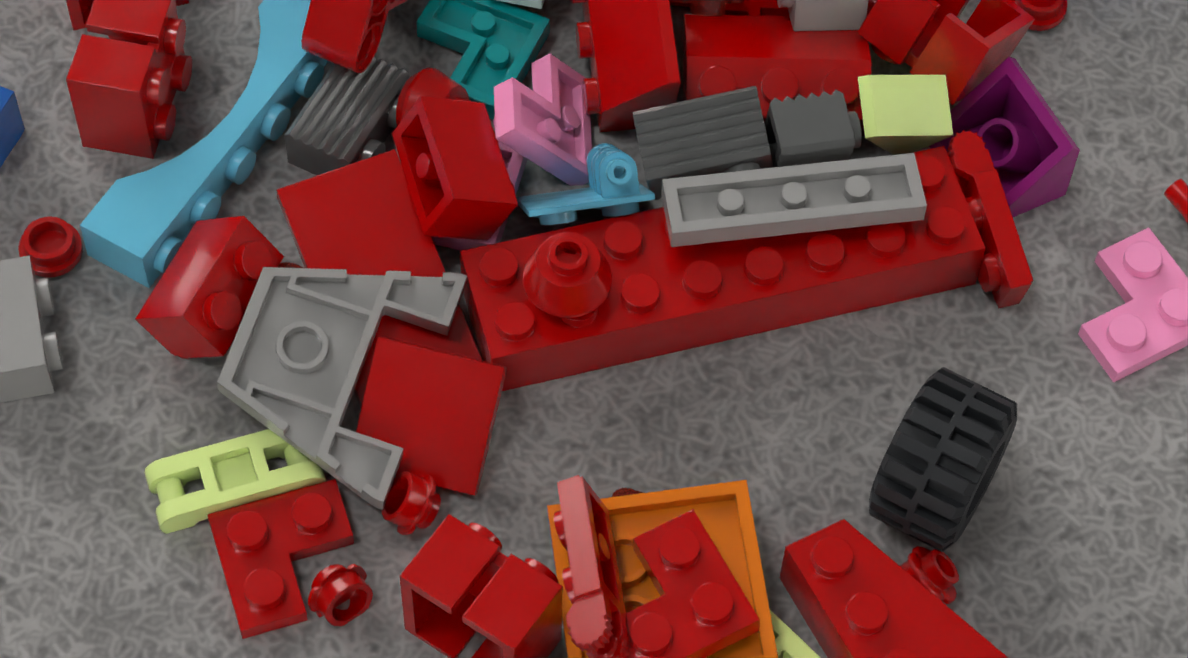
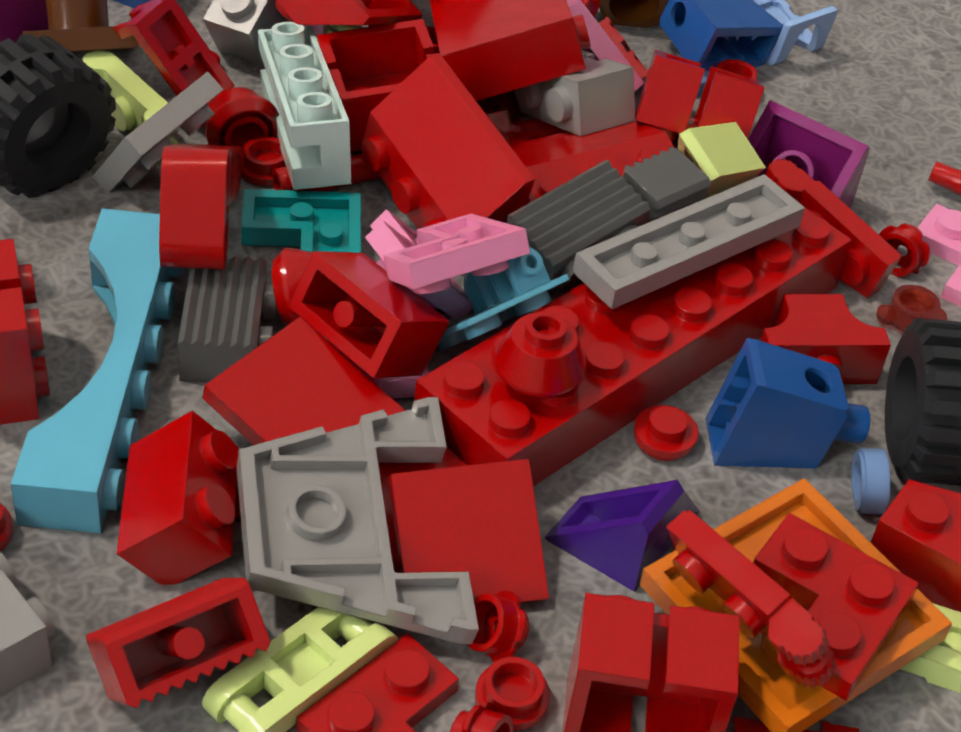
camera: 30 degrees left, 15 degrees down
(140, 415) = (178, 641): none -> red brick
(385, 561) = (515, 690): none -> red plate
(572, 137) = (456, 248): none -> bright pink plate
(574, 447) = (622, 529): none -> dark purple slope
(684, 378) = (665, 432): none -> red plate
(793, 404) = (781, 410): none -> blue torso
(837, 498) = (870, 480): none -> medium blue tile
(885, 342) = (828, 331): none -> red brick
(1029, 328) = (908, 304): none -> clear red plate
(1070, 264) = (917, 250): none -> red plate

